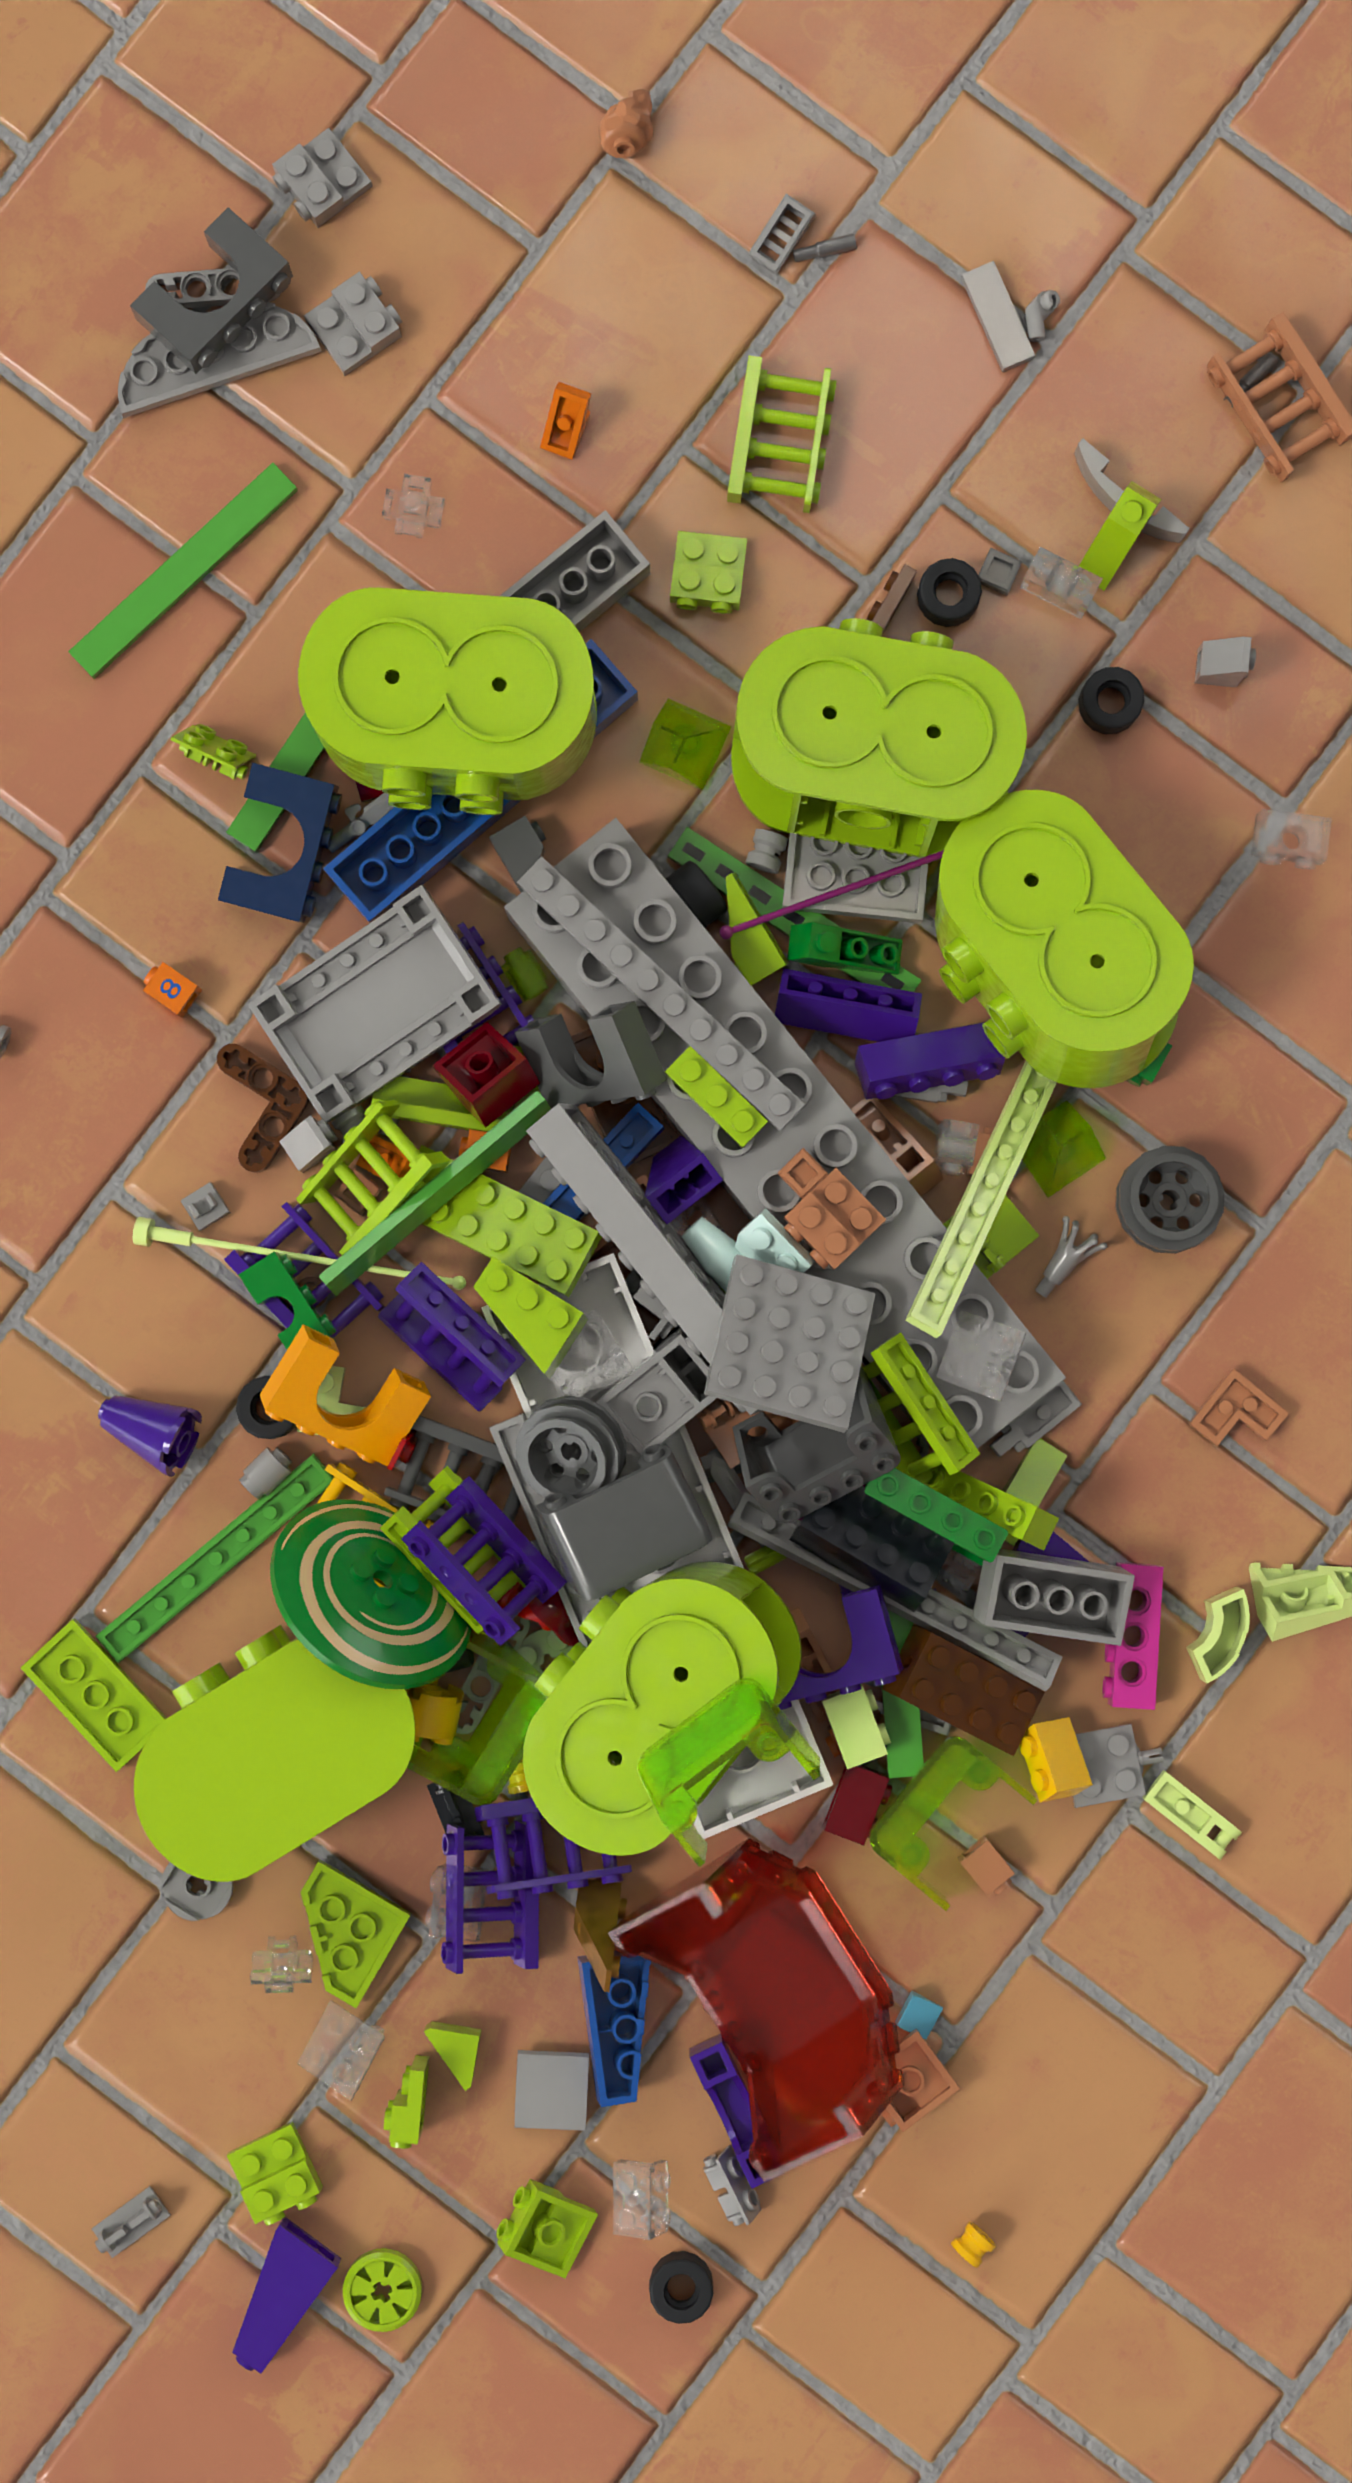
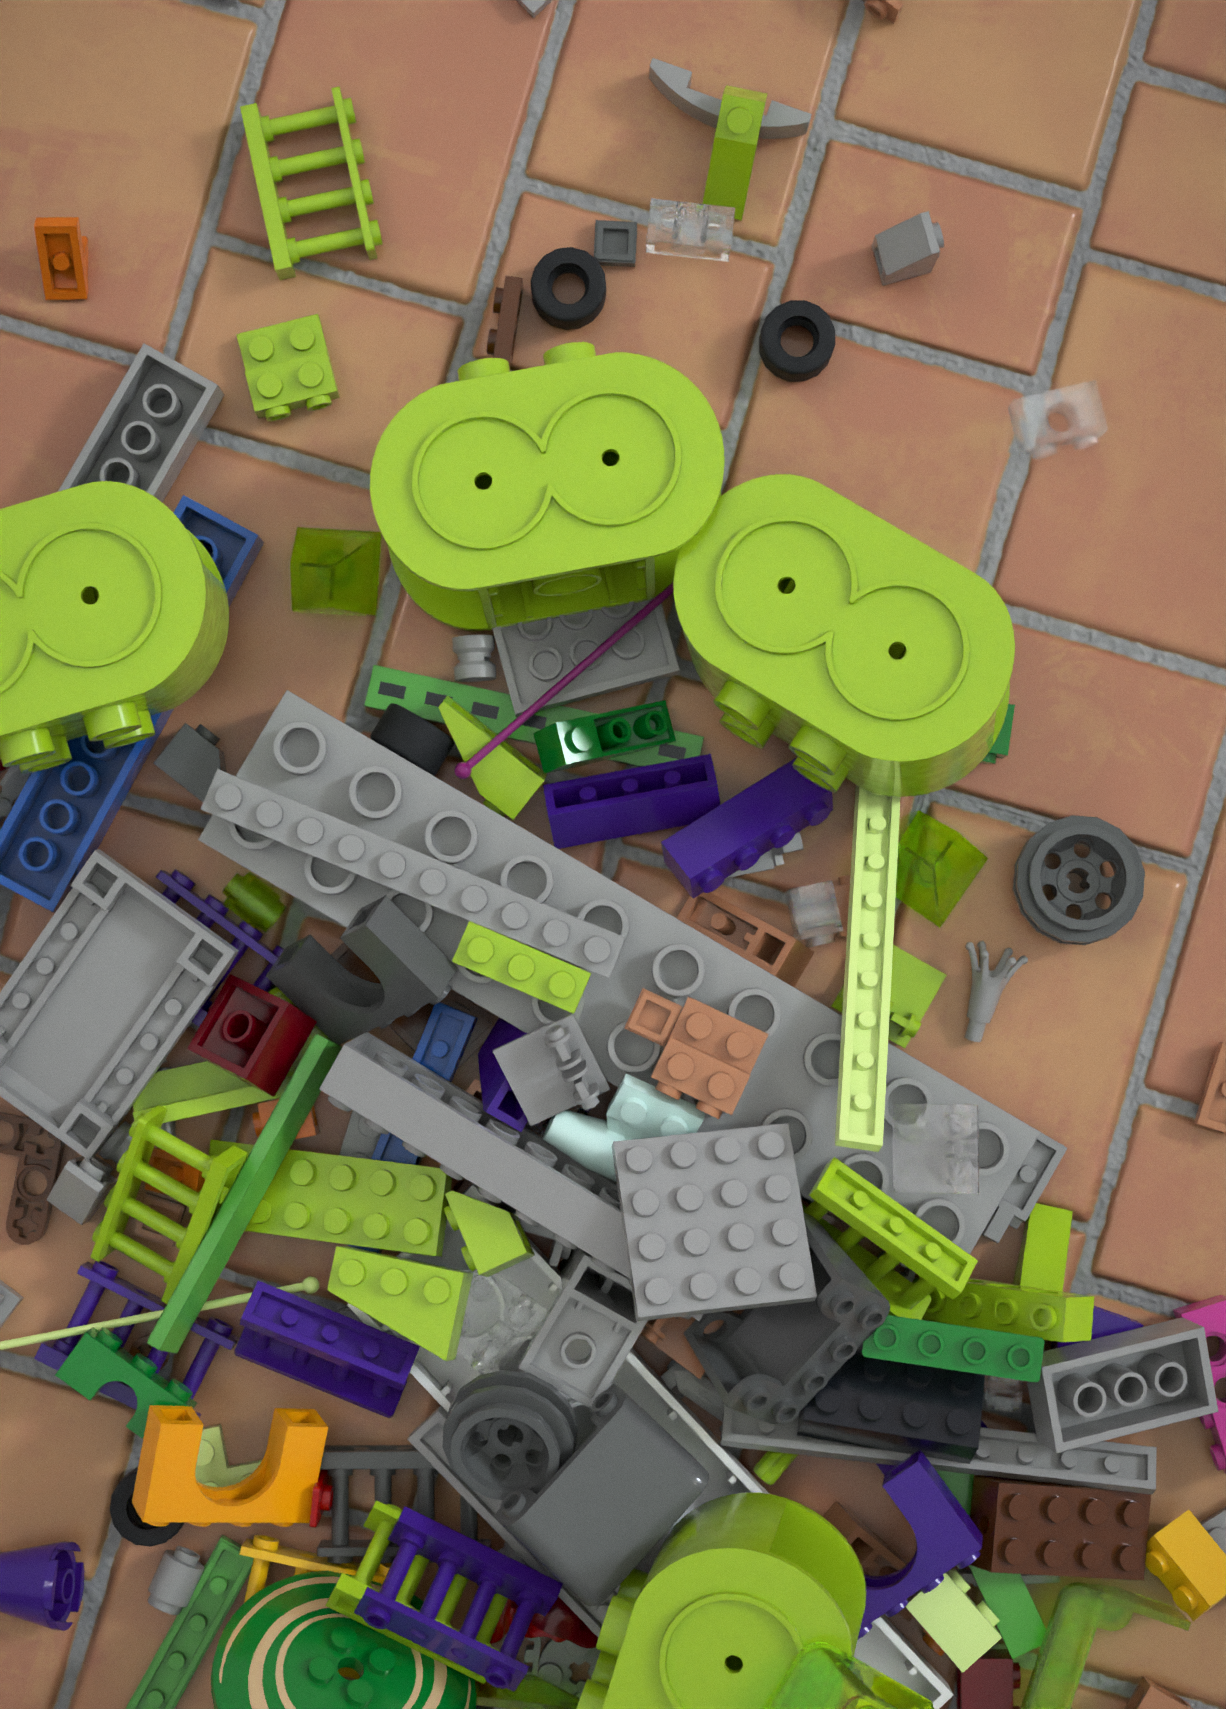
camera: 20 degrees left, 0 degrees up
(614, 1292) = (490, 1233): none -> lime slope
(709, 1184) = (552, 1070): none -> light grey hinge

